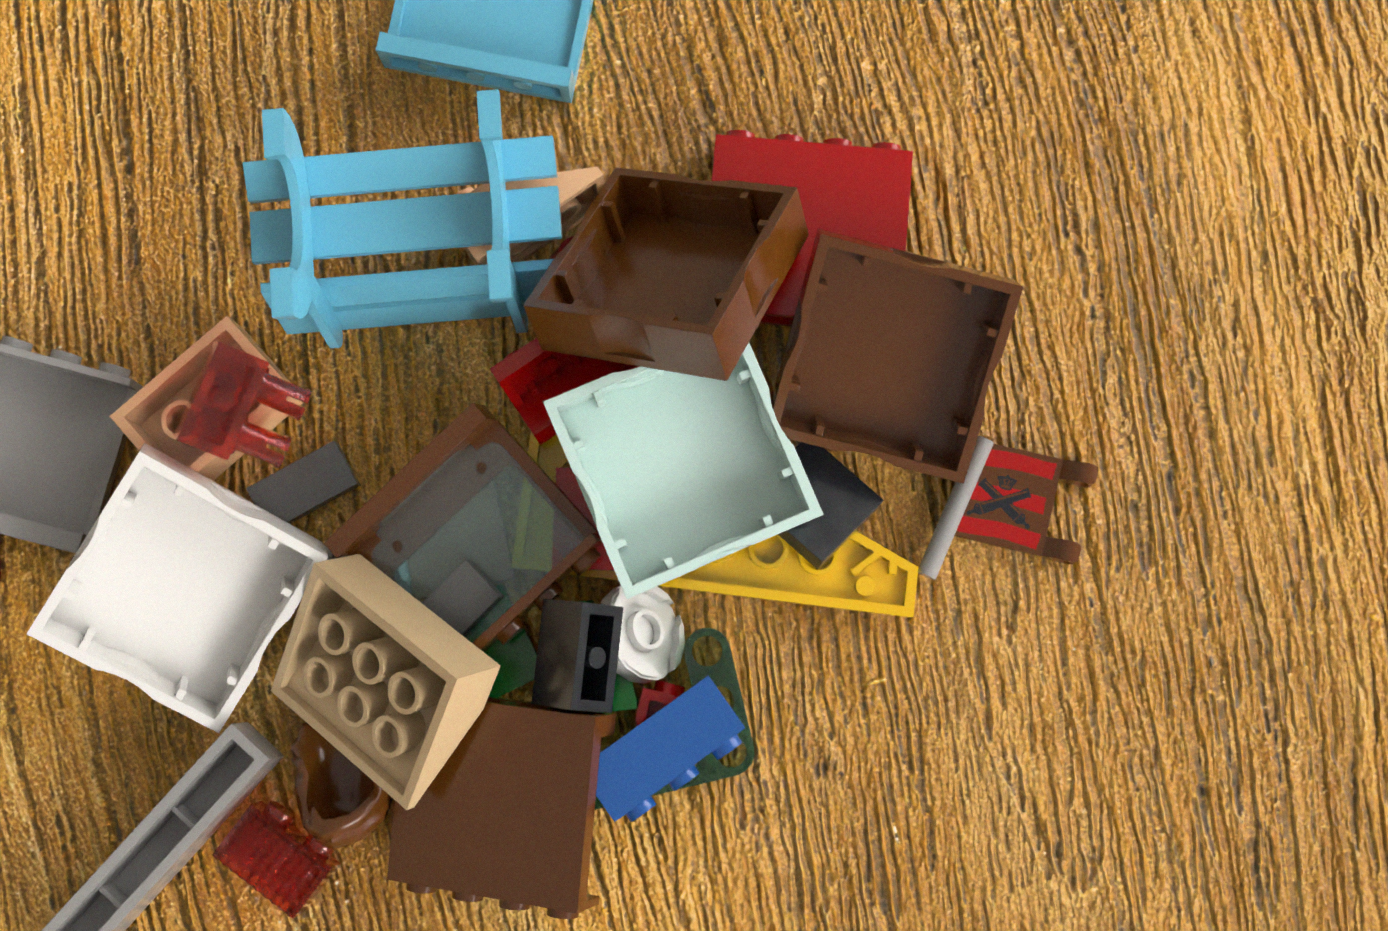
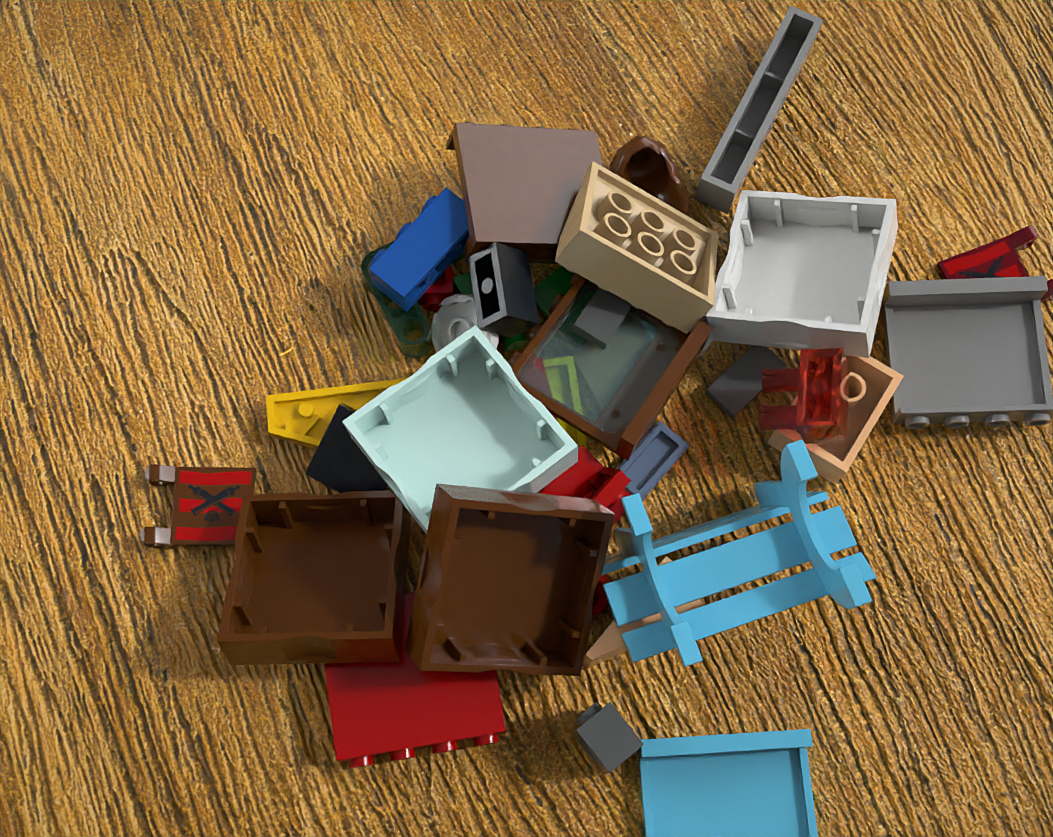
camera: 165 degrees right, 10 degrees down
(277, 857) = (679, 129): clear red brick -> none
(440, 411) = (653, 459): none -> sand blue tile
(605, 96) = (606, 736): none -> dark grey brick
(954, 512) = (250, 475): light grey bar -> none

